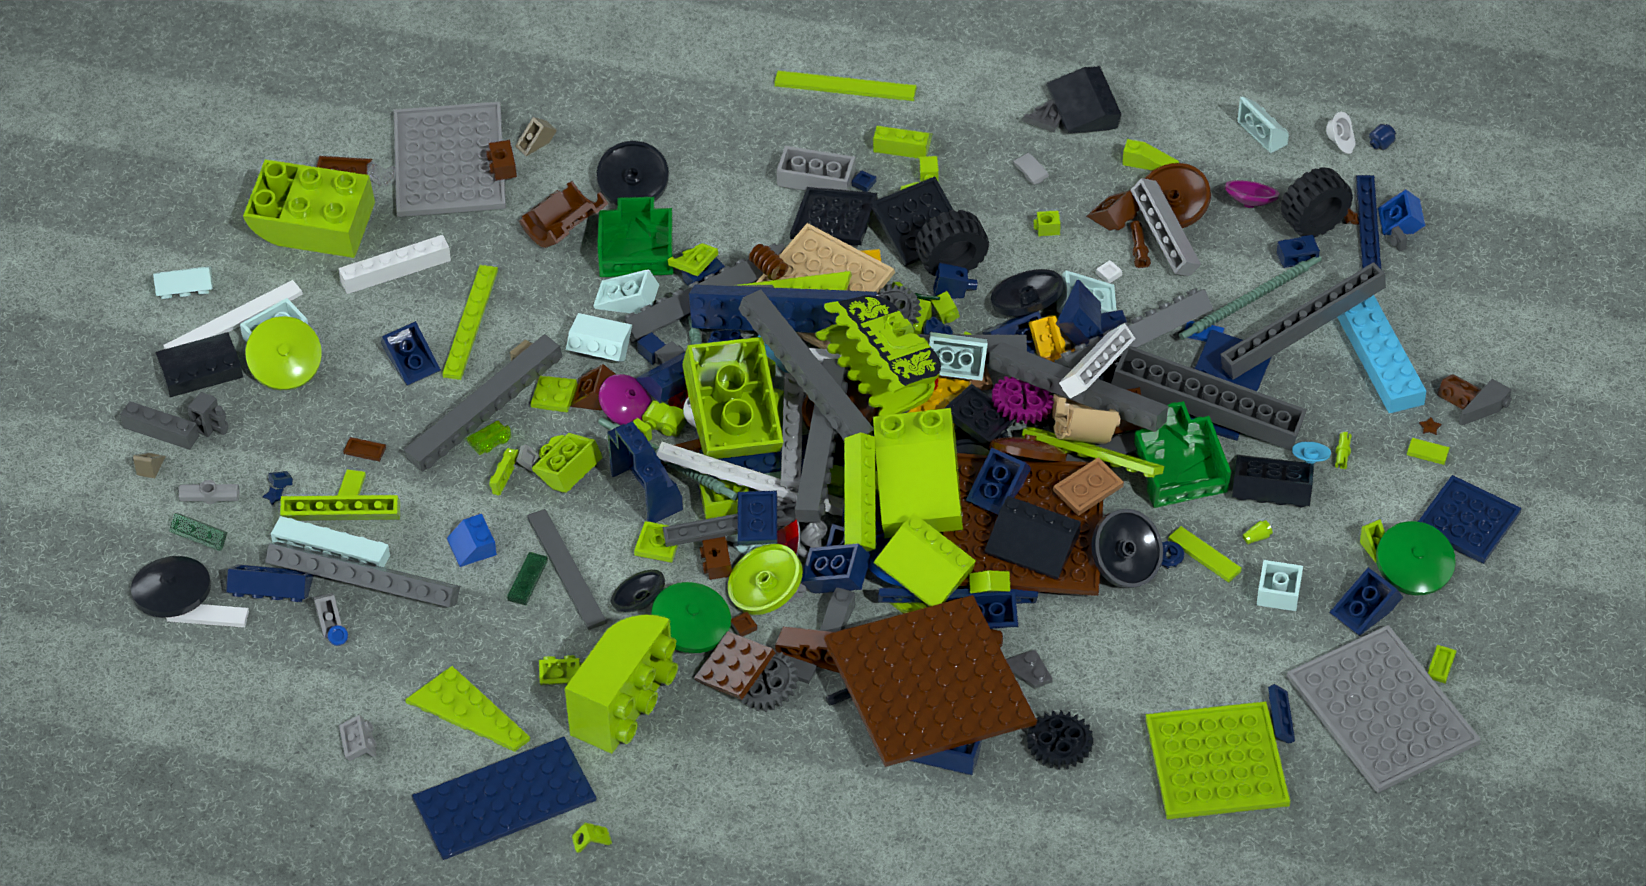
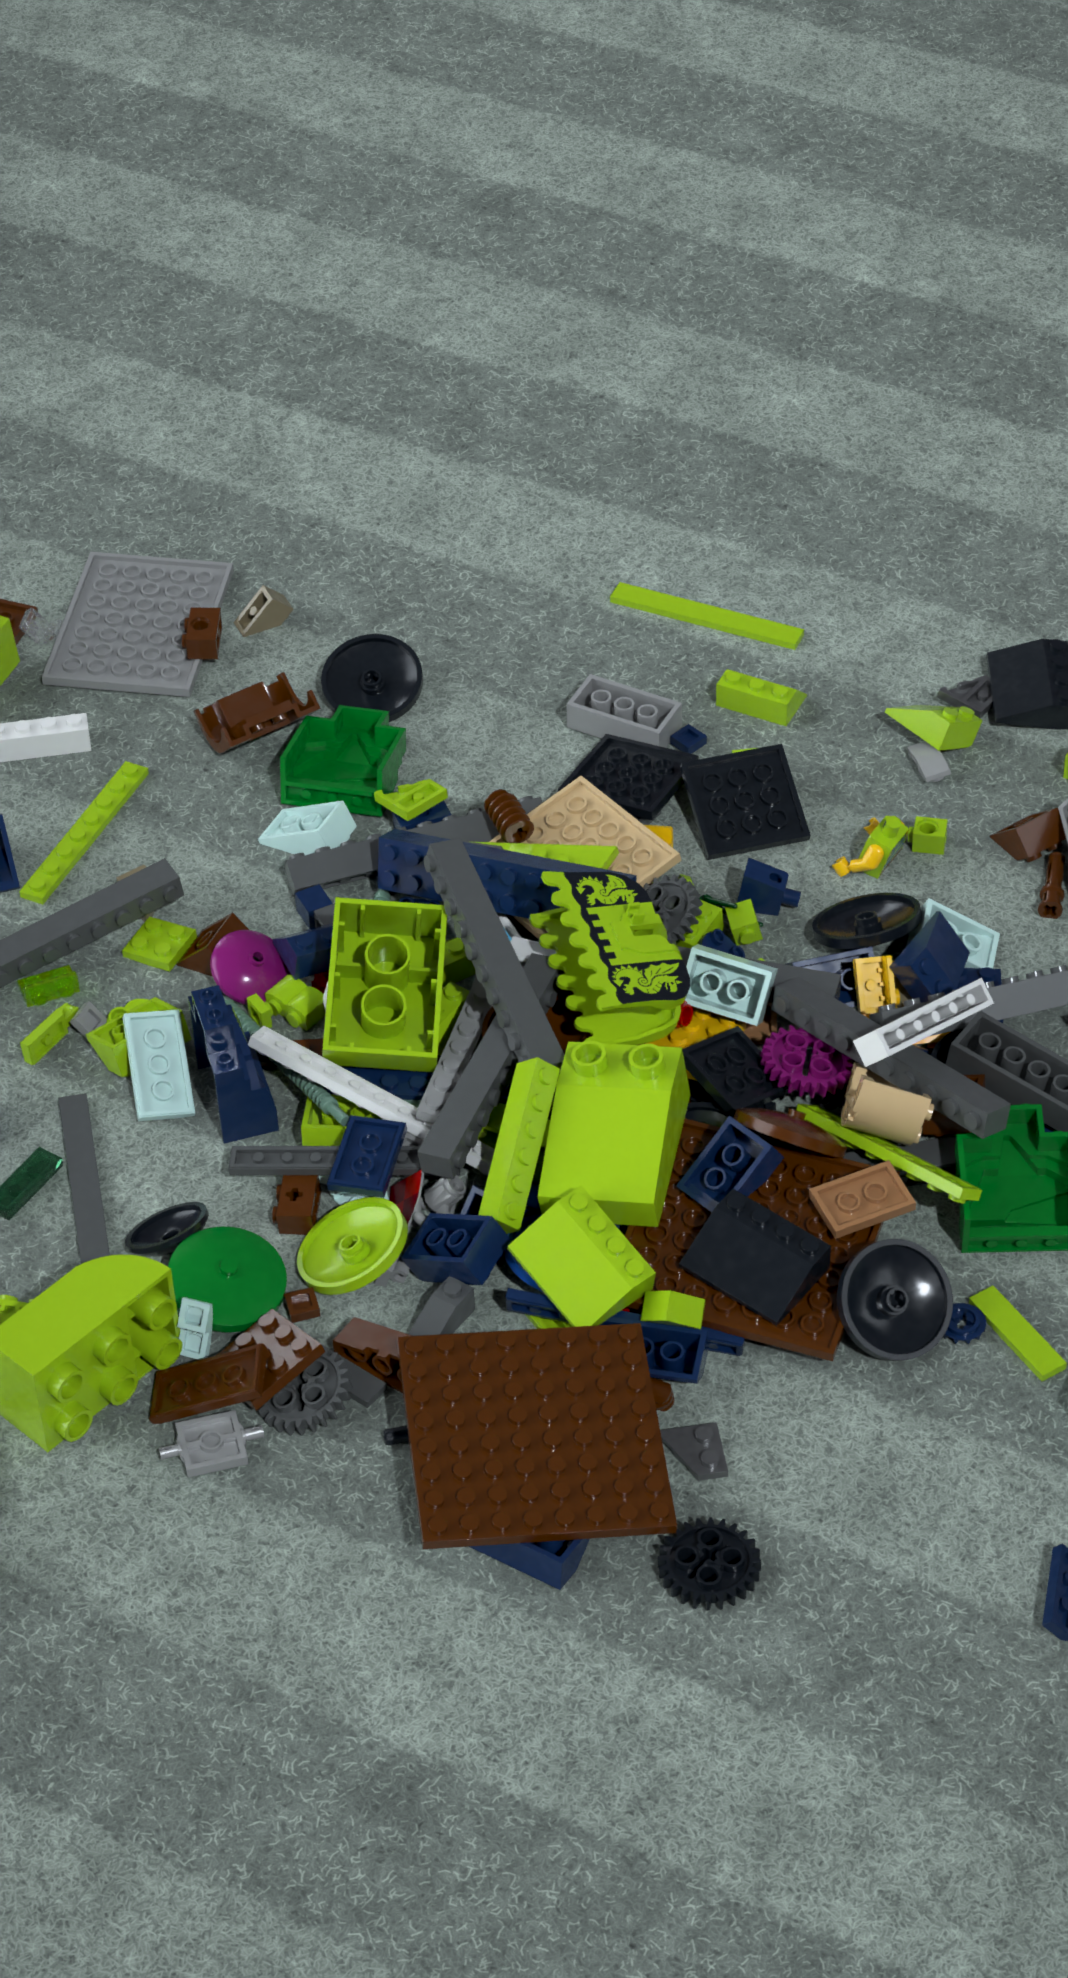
camera: 15 degrees right, 5 degrees down
(591, 480) = (158, 1065): none -> light aqua tile
(599, 337) = (245, 879): light aqua slope -> none
(652, 543) = (212, 1171): lime plate -> none
(683, 654) = (196, 1328): none -> light aqua slope
(705, 689) = (208, 1384): none -> reddish brown tile
(718, 726) = (211, 1443): none -> light grey plate
(928, 167) = (785, 733): lime brick -> none
(953, 240) = (773, 812): black tyre -> none
(1020, 238) = (880, 849): none -> torso
(1030, 141) = (939, 725): none -> lime slope
(1109, 272) = (997, 914): white plate -> none
(1217, 760) = (941, 1644): lime plate -> none

